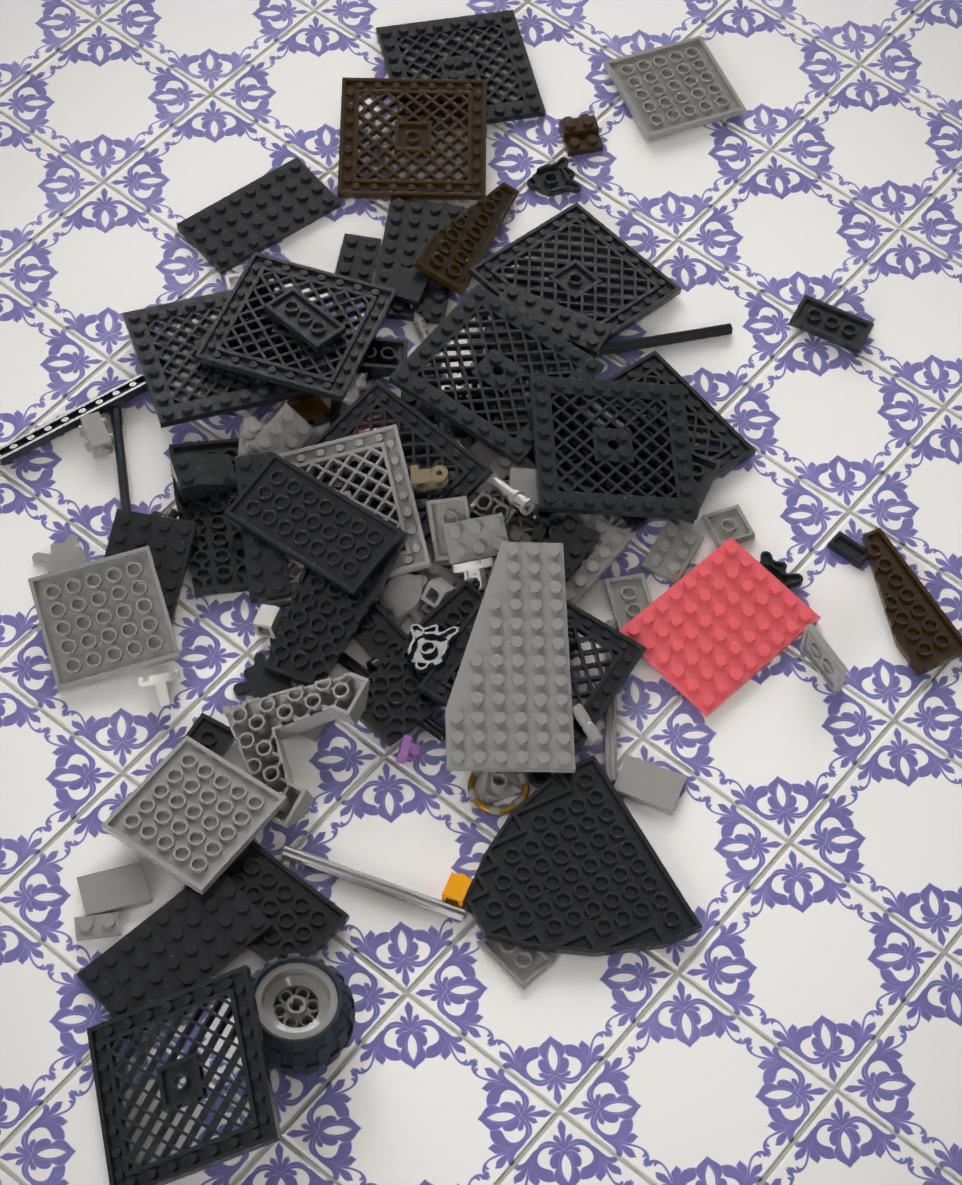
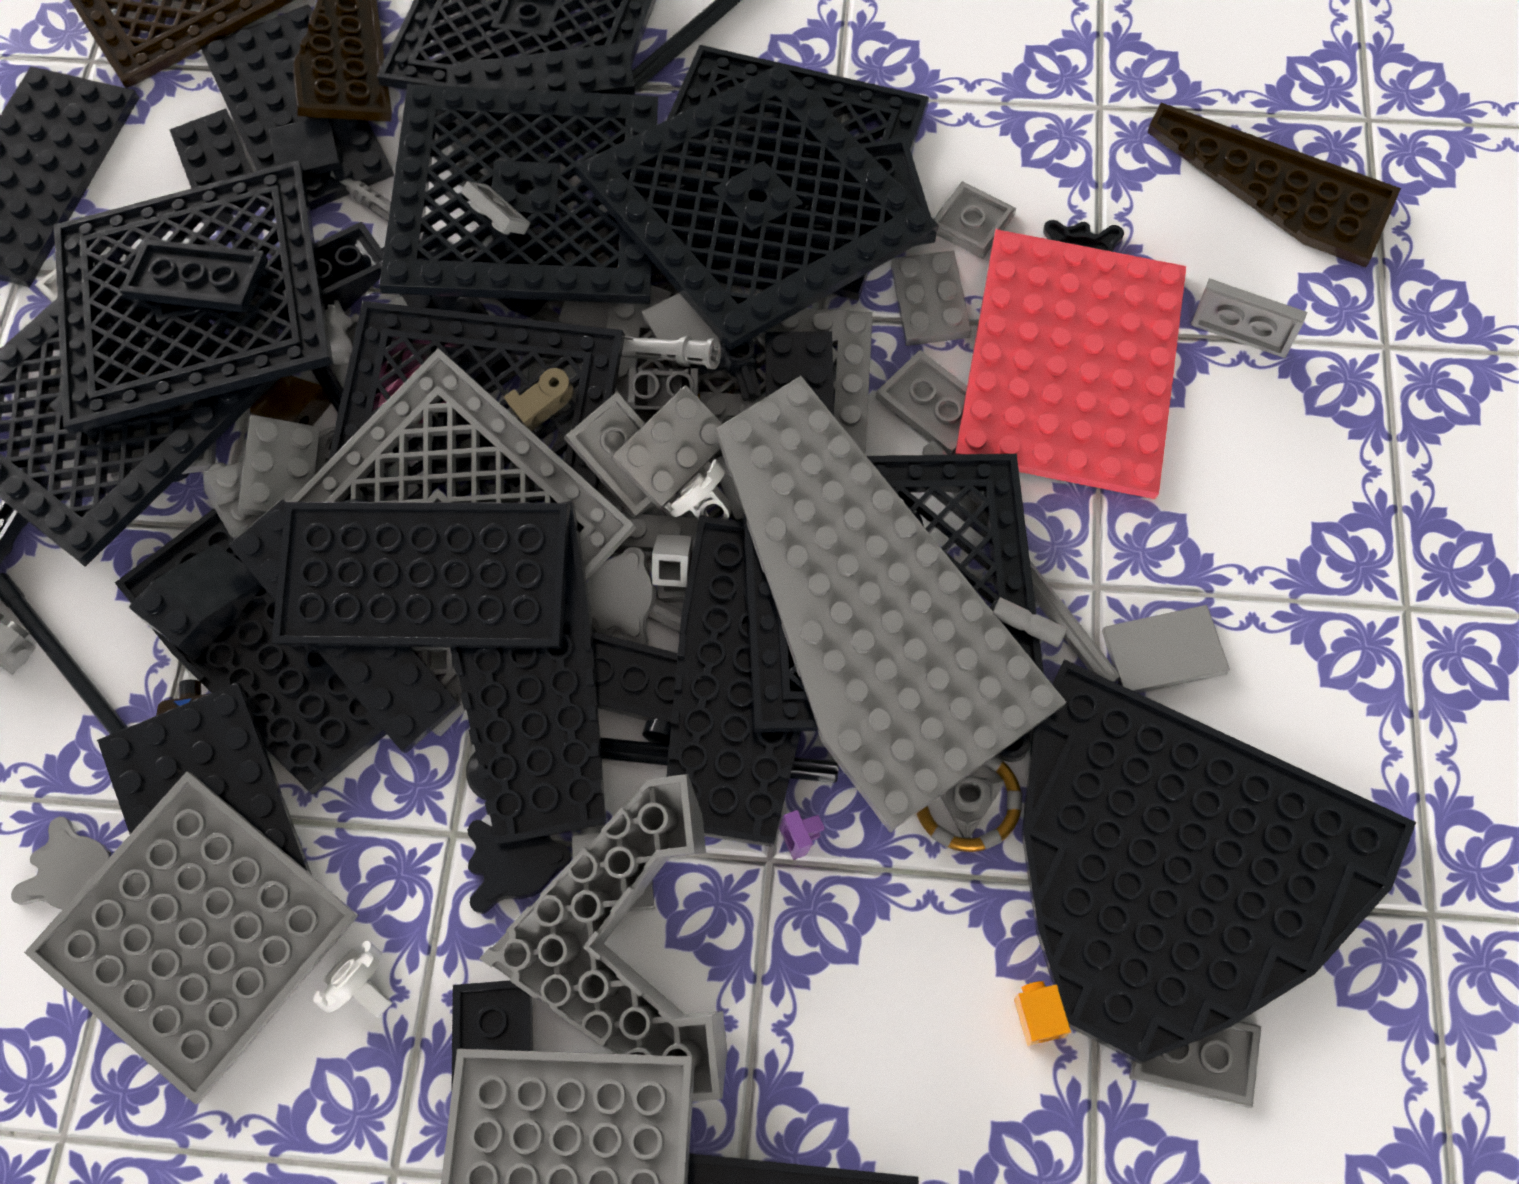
camera: 25 degrees left, 10 degrees up
(268, 621) = (451, 764): light grey brick -> none
(374, 883) = (907, 1088): light grey axle -> none
(430, 646) = (727, 654): tile -> none
(473, 373) = (489, 203): none -> light grey plate
(848, 549) = (1142, 156): black tile -> none

